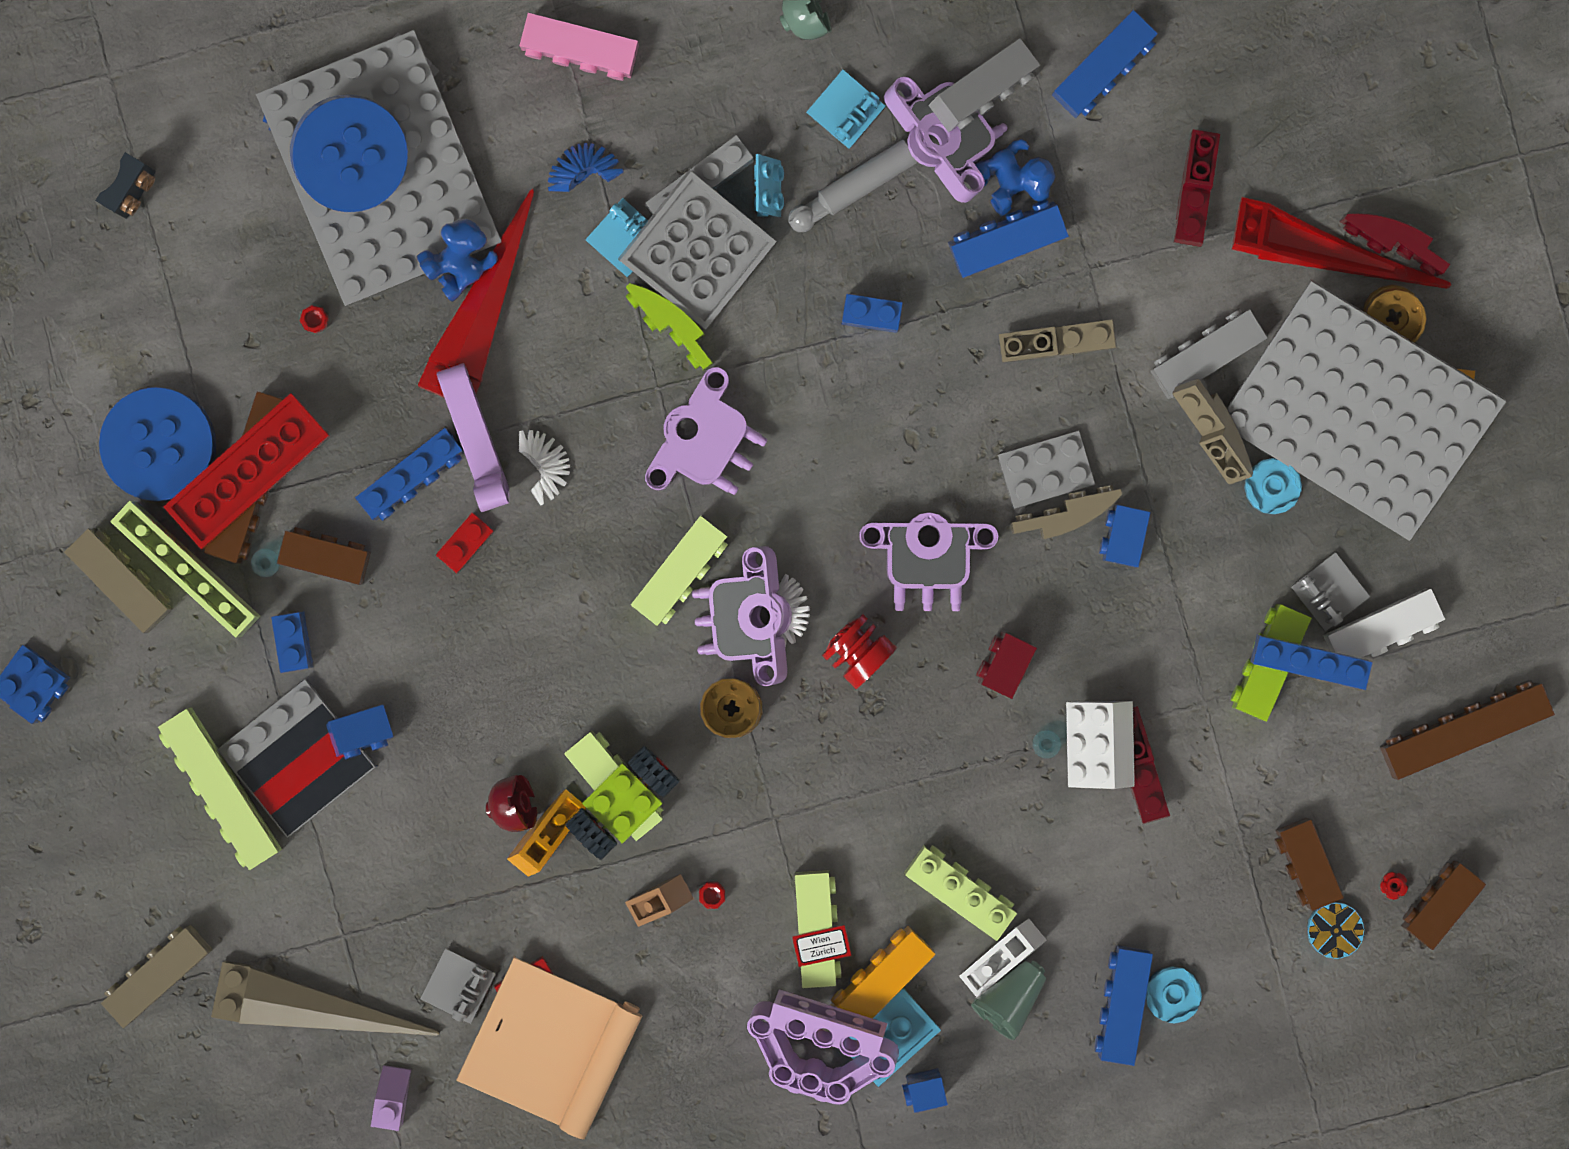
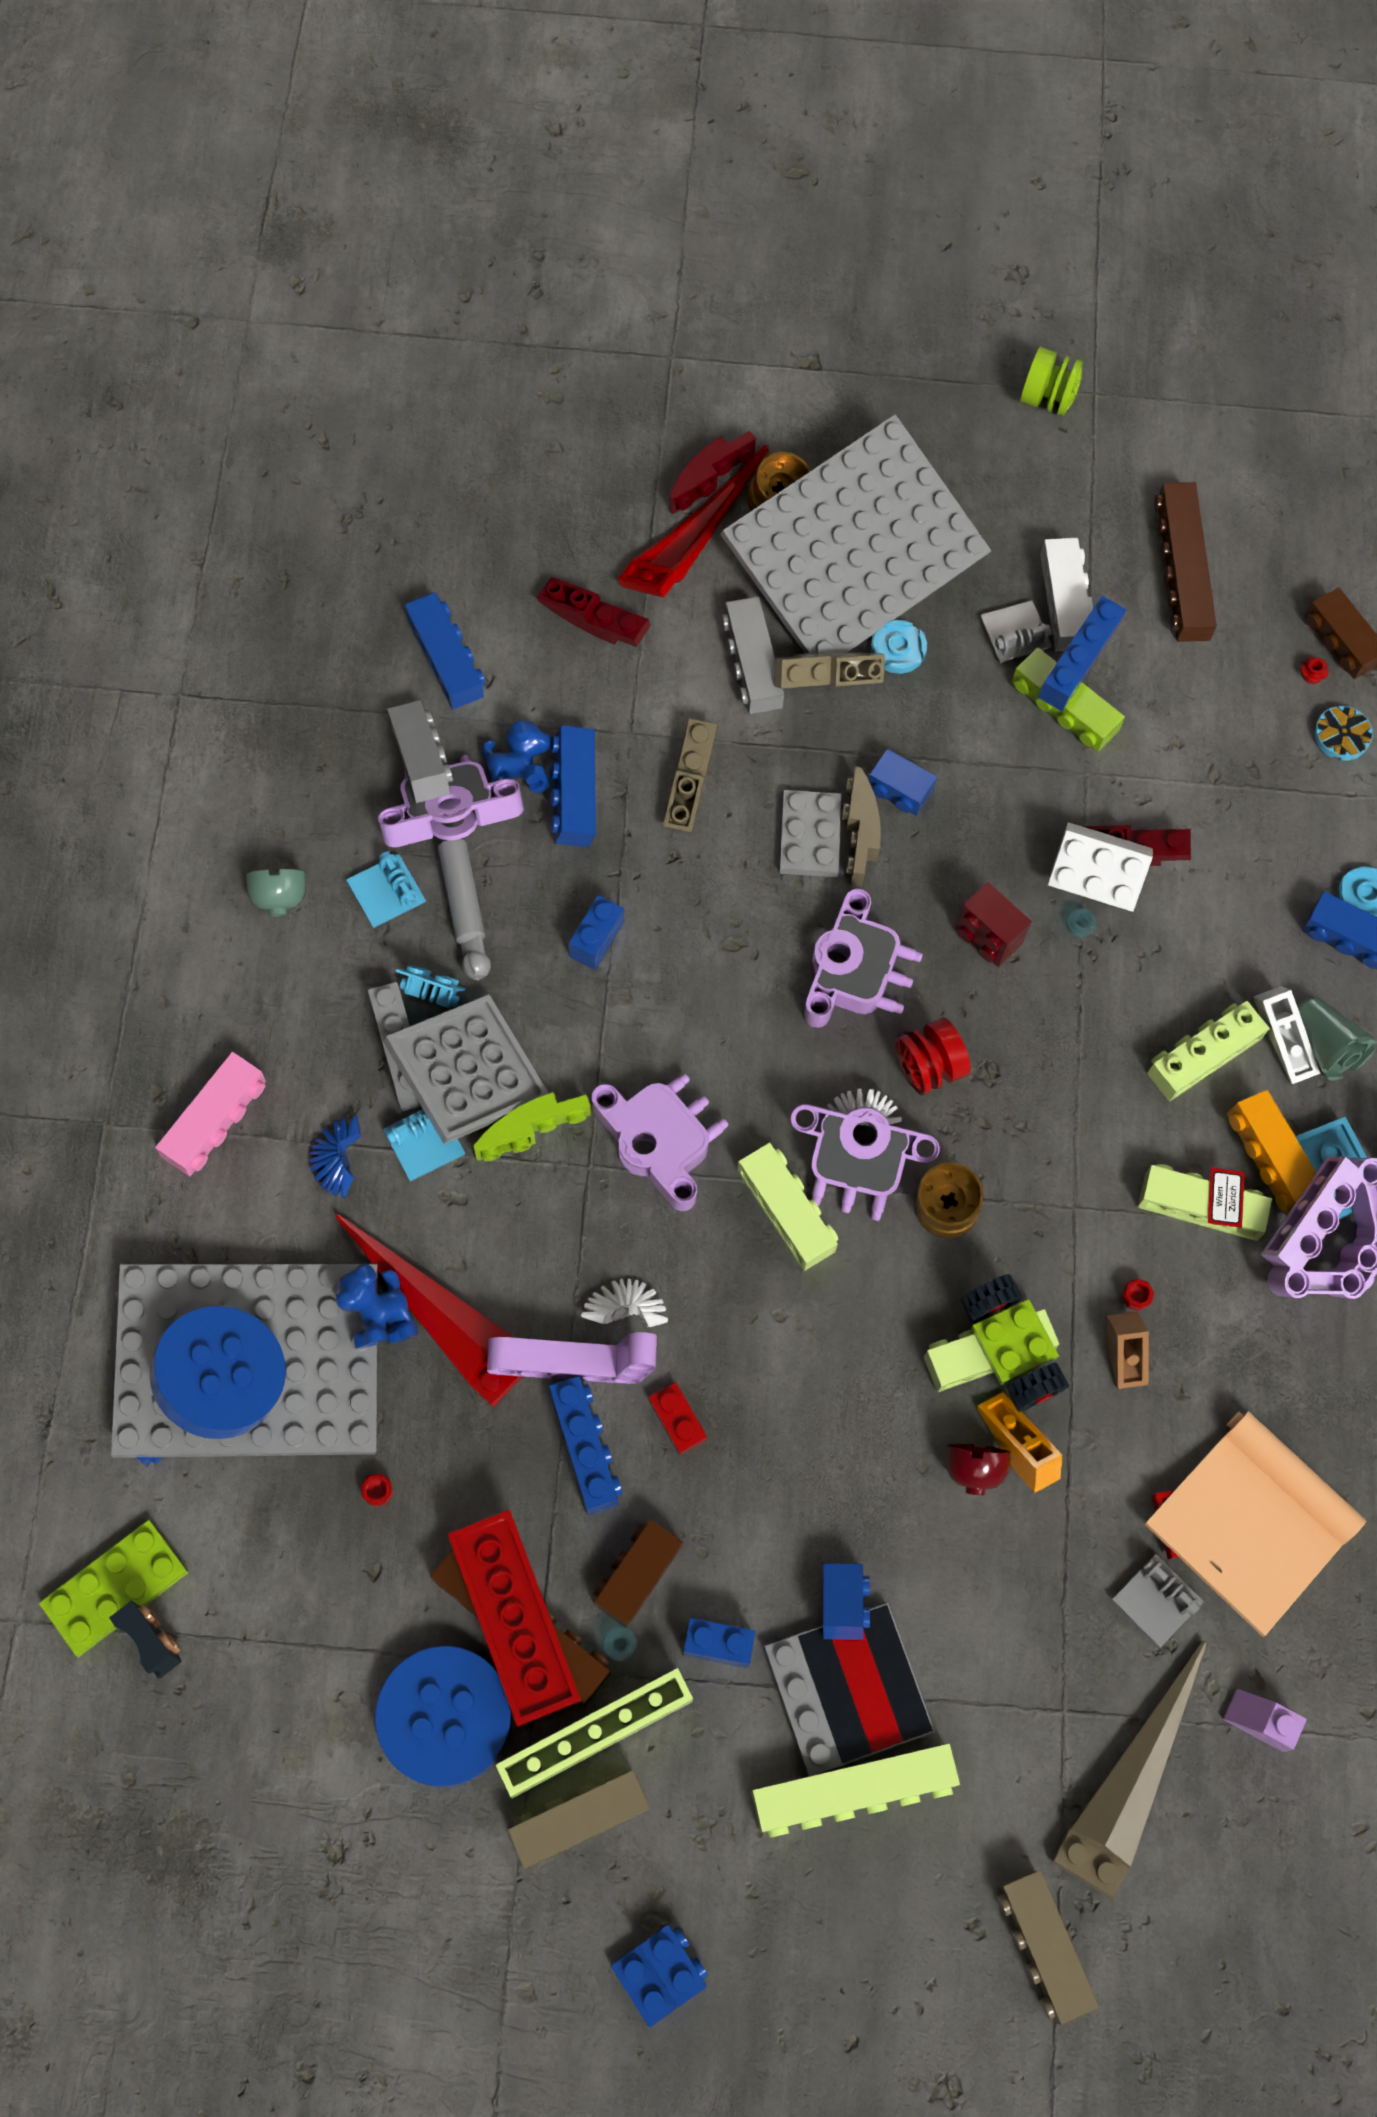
camera: 75 degrees left, 20 degrees down
(161, 140) = (131, 1570): none -> lime plate
(1308, 864) = (1273, 731): reddish brown brick -> none

